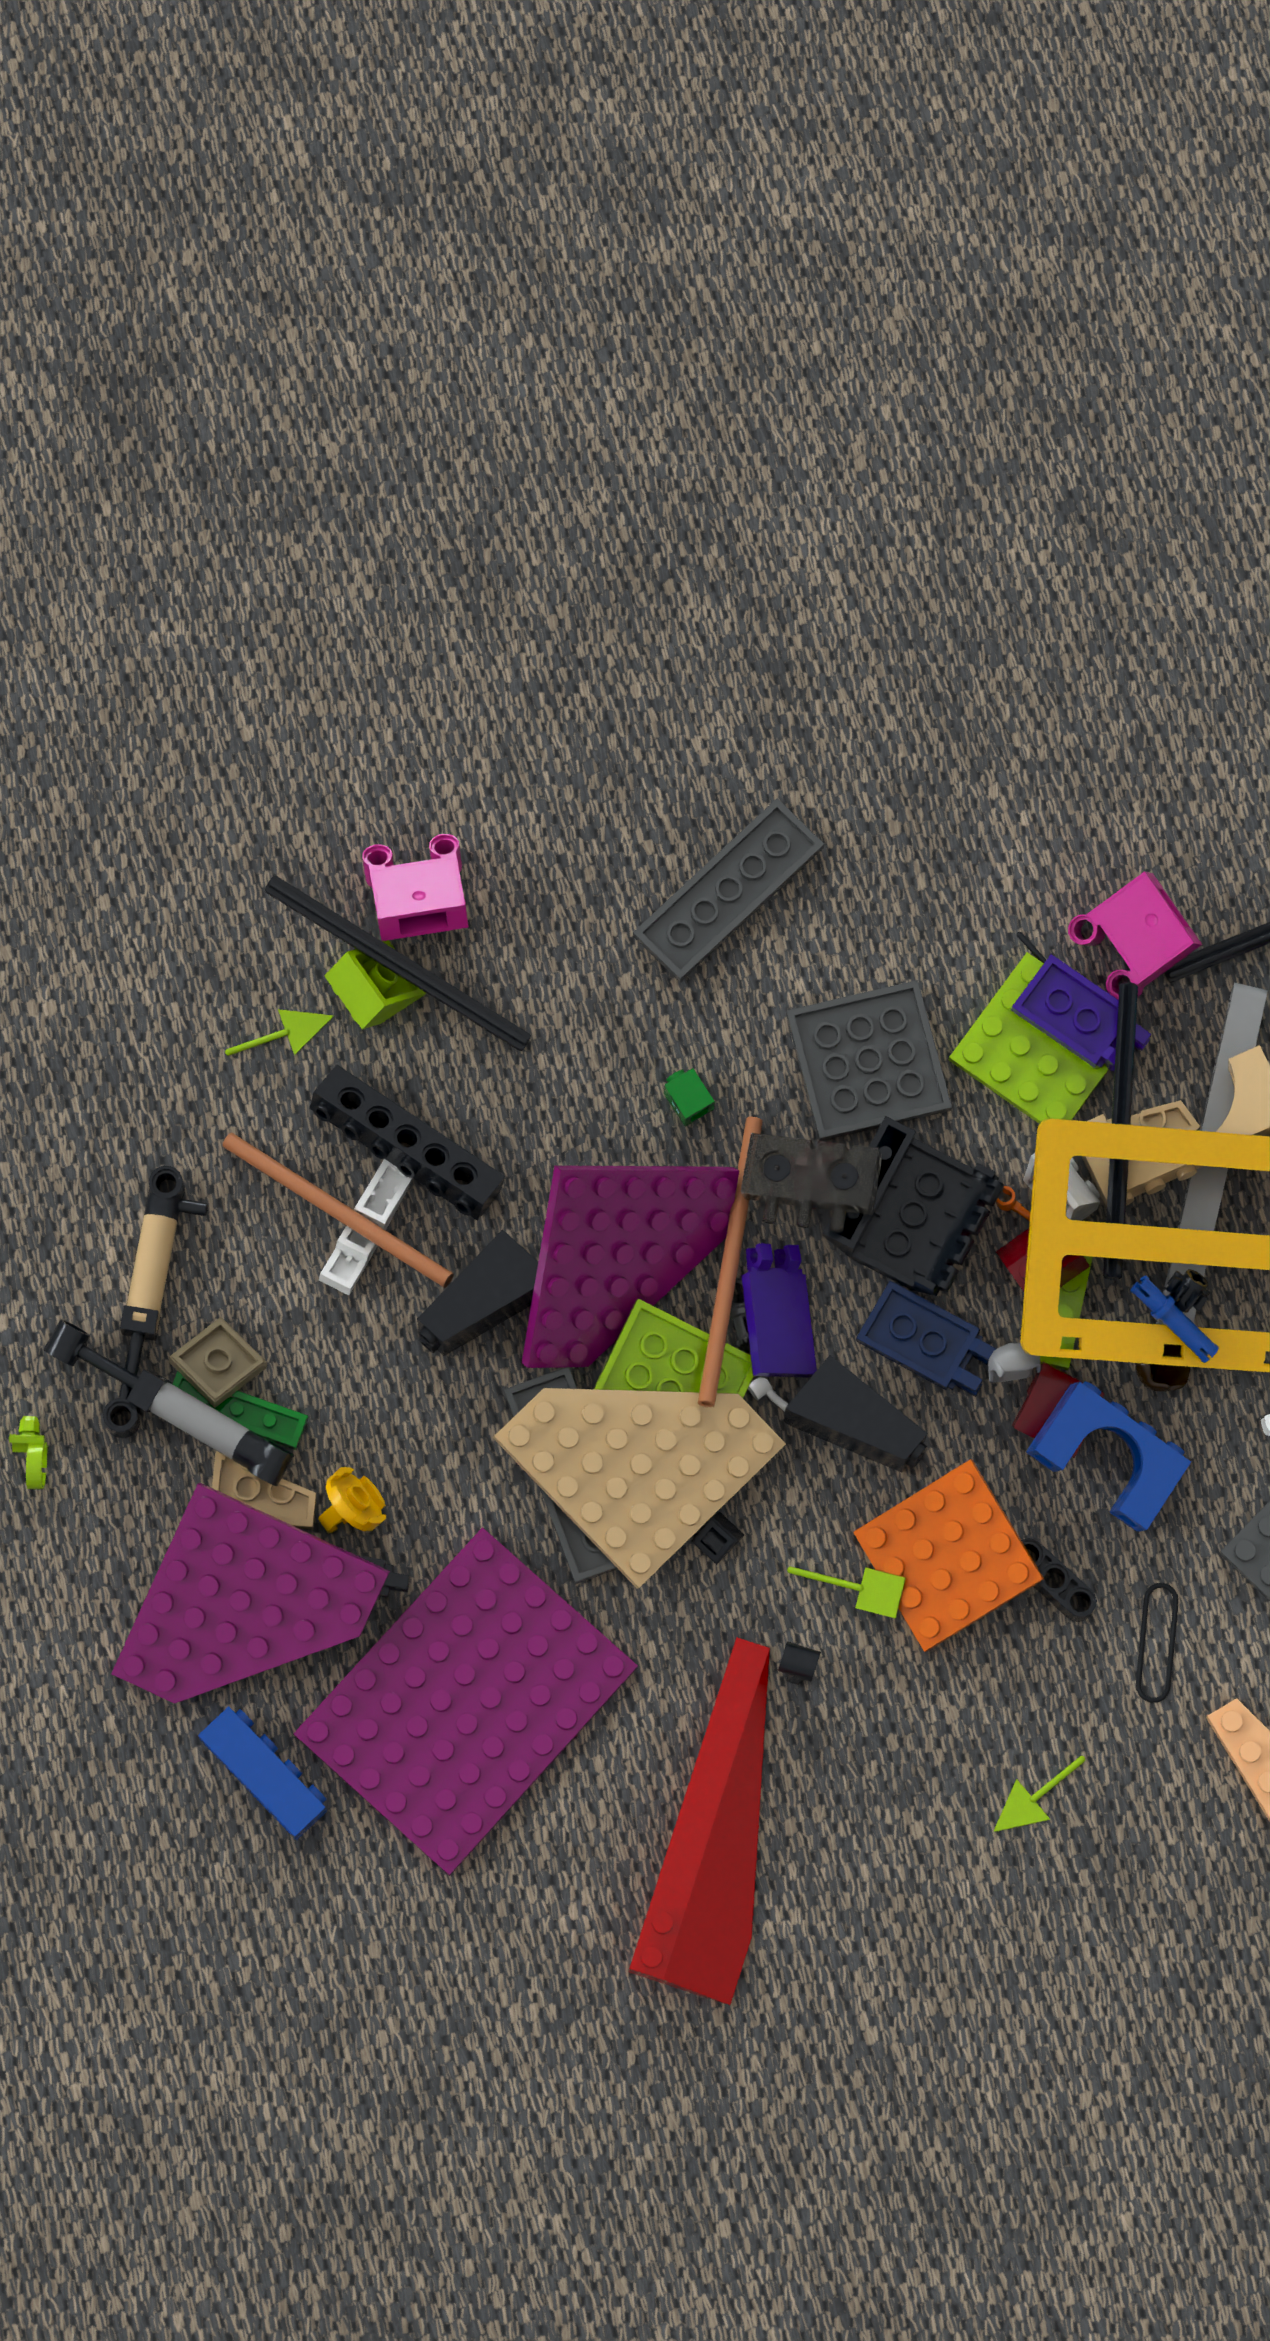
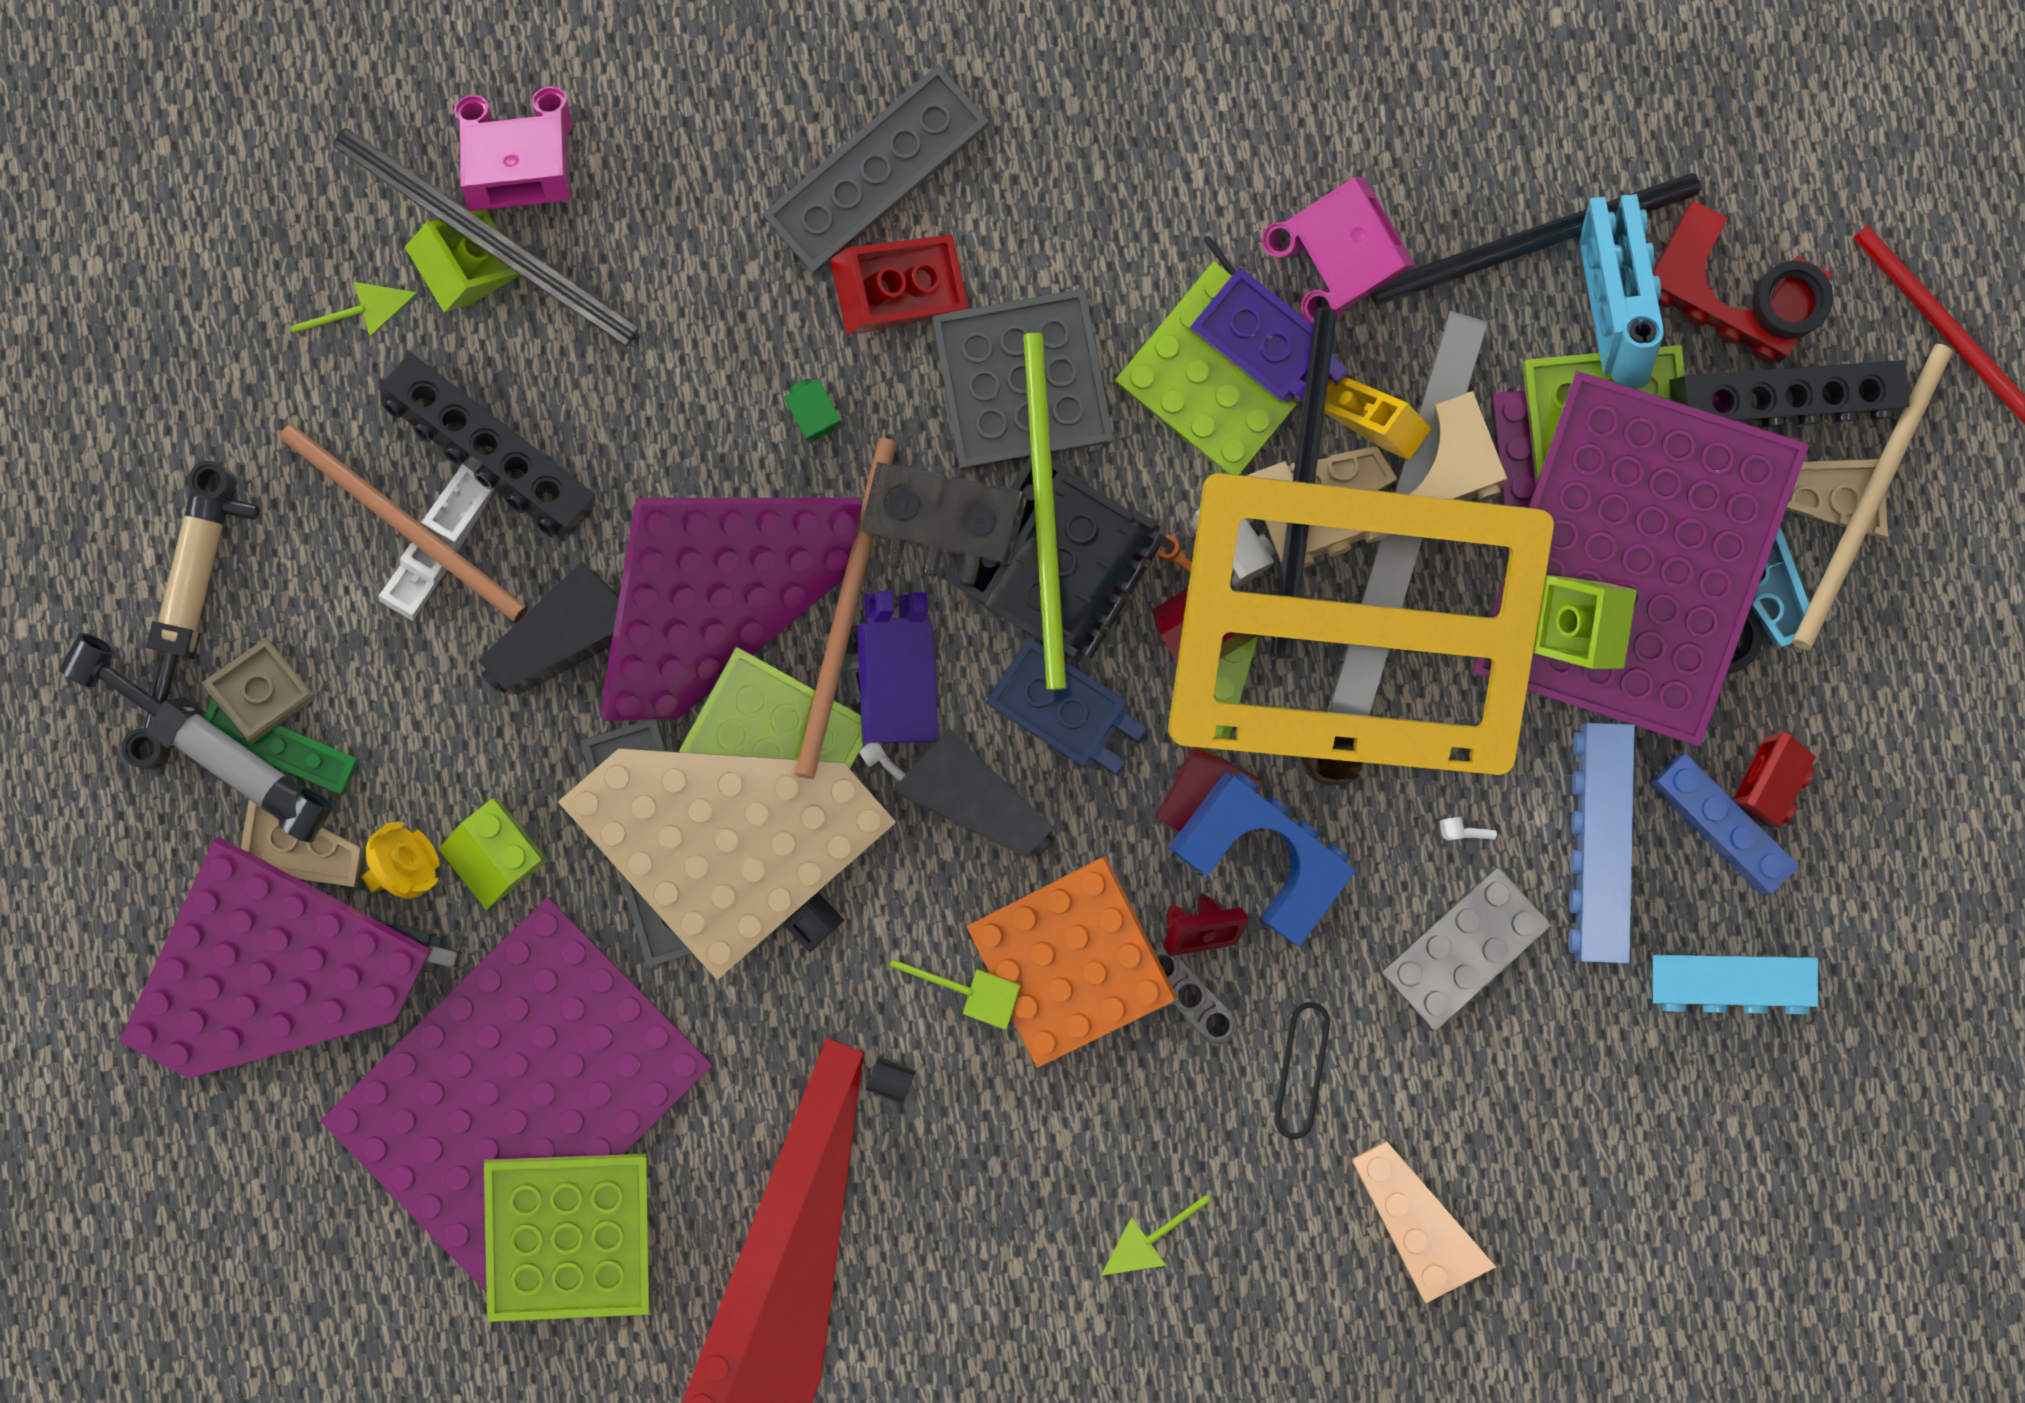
camera: 10 degrees right, 10 degrees up
(34, 1445) = (45, 783): lime piece -> none
(263, 1773) = (282, 1164): blue brick -> none
(431, 1491) = (492, 853): none -> lime slope
(521, 1819) = (566, 1237): none -> lime plate
(754, 984) = (898, 283): none -> red slope
(899, 1168) = (1044, 511): none -> lime piece
(1011, 1363) = (1155, 744): light grey hair -> none
(1063, 1520) = (1207, 930): none -> dark red tile
(1163, 1308) = (1337, 697): blue pin -> none
(1179, 1074) = (1376, 416): none -> yellow slope
(1188, 1290) = (1366, 677): black gear -> none

